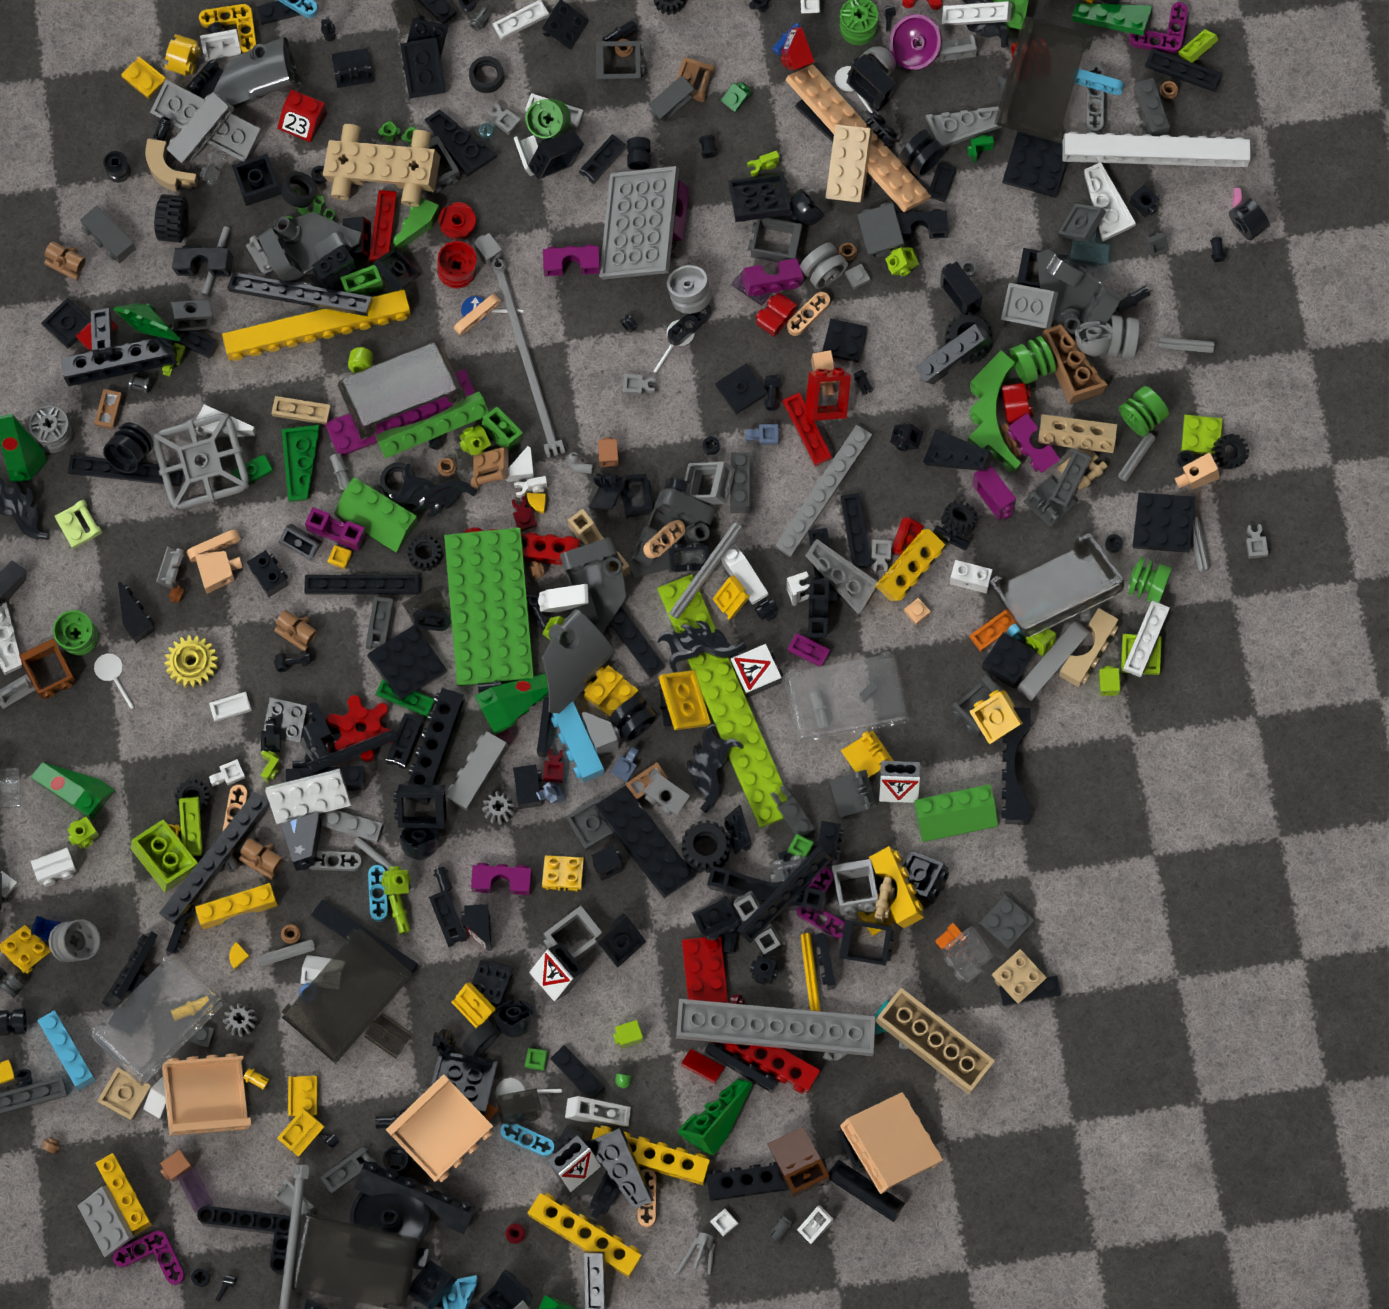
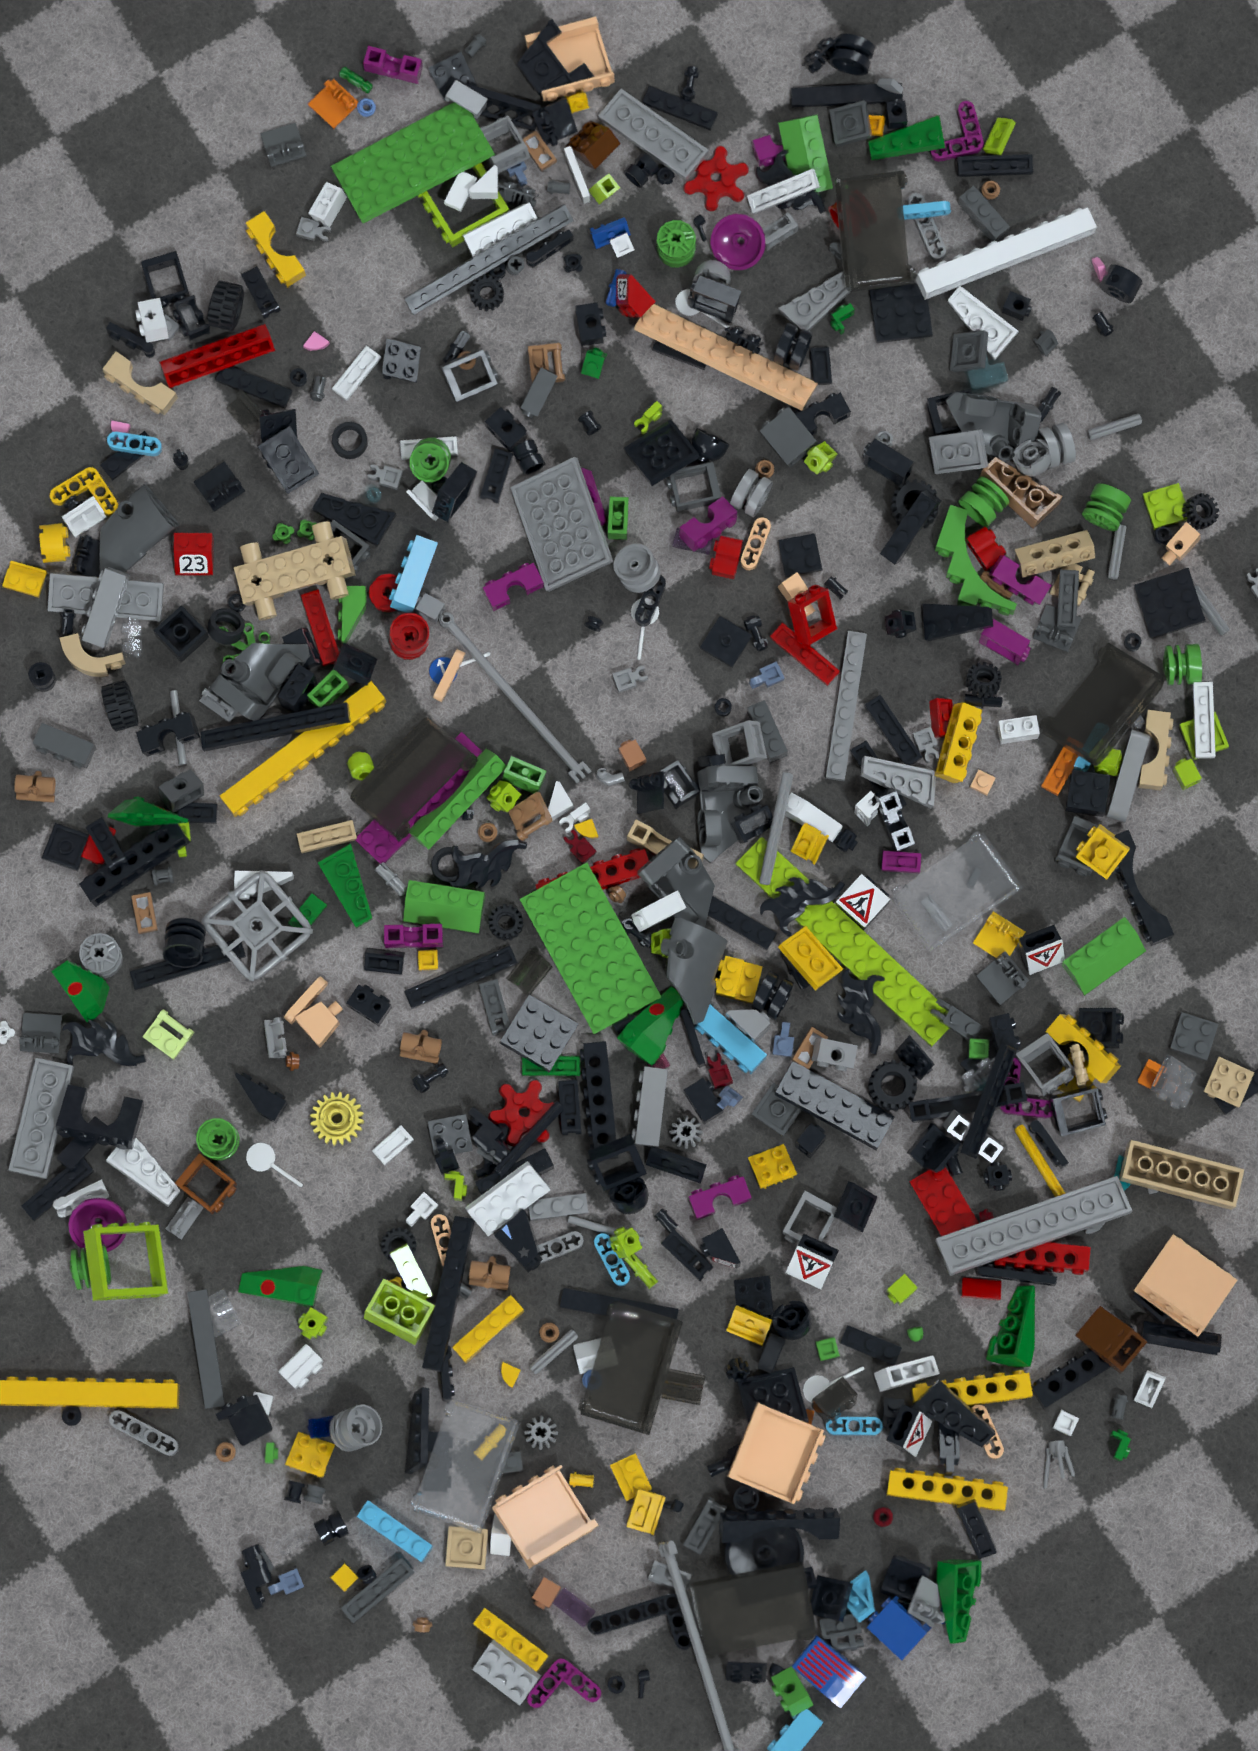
camera: 25 degrees left, 5 degrees up
(430, 618) = (540, 983): black plate -> none
(475, 833) = (676, 1164): none -> black plate
(486, 212) = (413, 575): none -> medium azure brick
(627, 111) = (508, 439): none -> black brick
(657, 539) = (729, 810): light nougat beam -> none
(693, 239) = (618, 518): none -> bright green brick
(749, 50) = (585, 314): none -> black brick
(764, 1269) = (1123, 1449): none -> green bracket
(849, 163) = (730, 385): tan plate -> none
(857, 276) = (784, 489): light grey plate -> none

